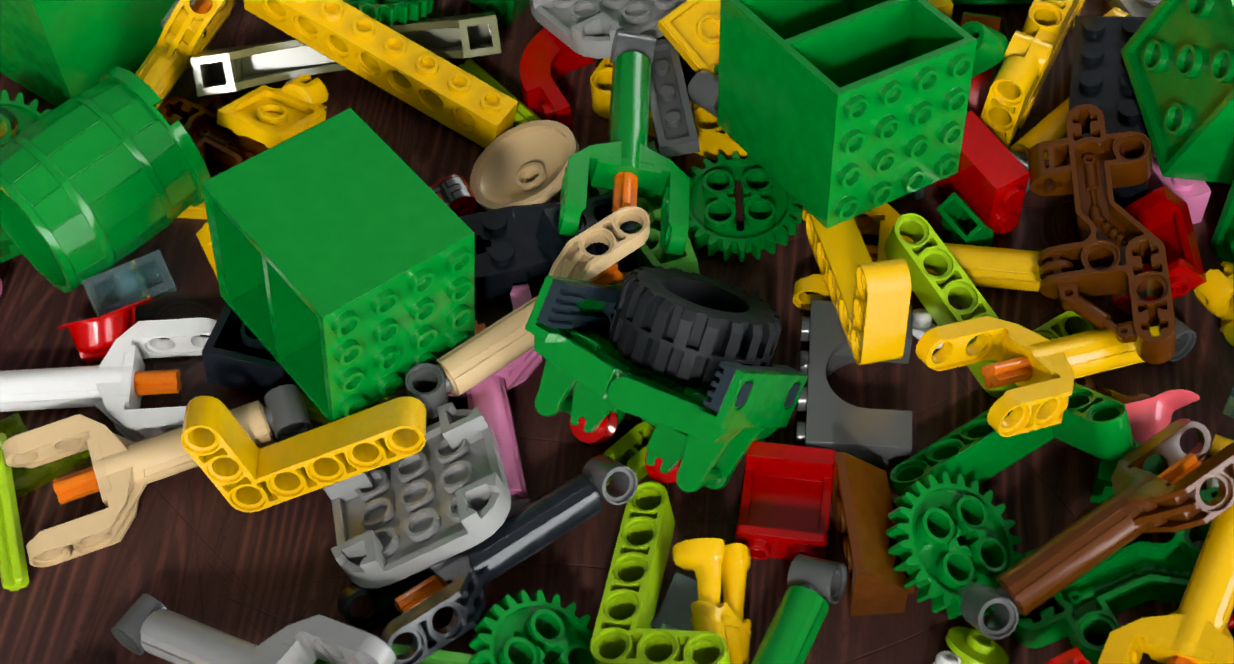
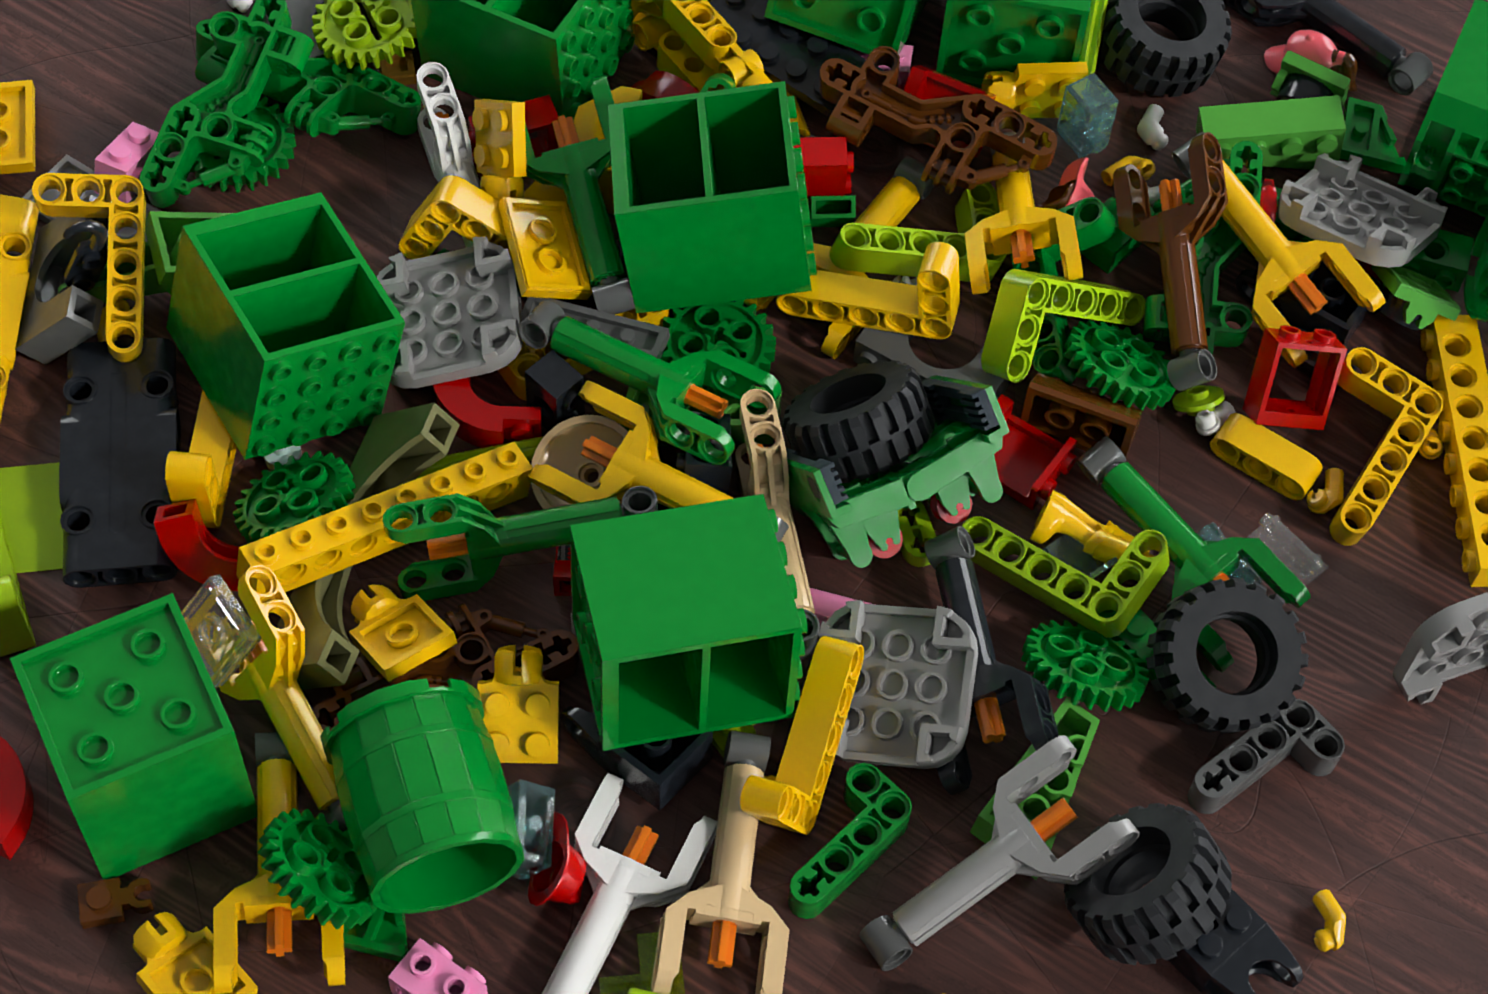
camera: 70 degrees left, 5 degrees up
(180, 536) = (844, 848): none -> green beam
(388, 111) = (478, 540): none -> green piece
(521, 190) = (631, 464): none -> yellow piece
(588, 104) = (554, 388): none -> black brick
(963, 437) = (1021, 310): none -> lime beam

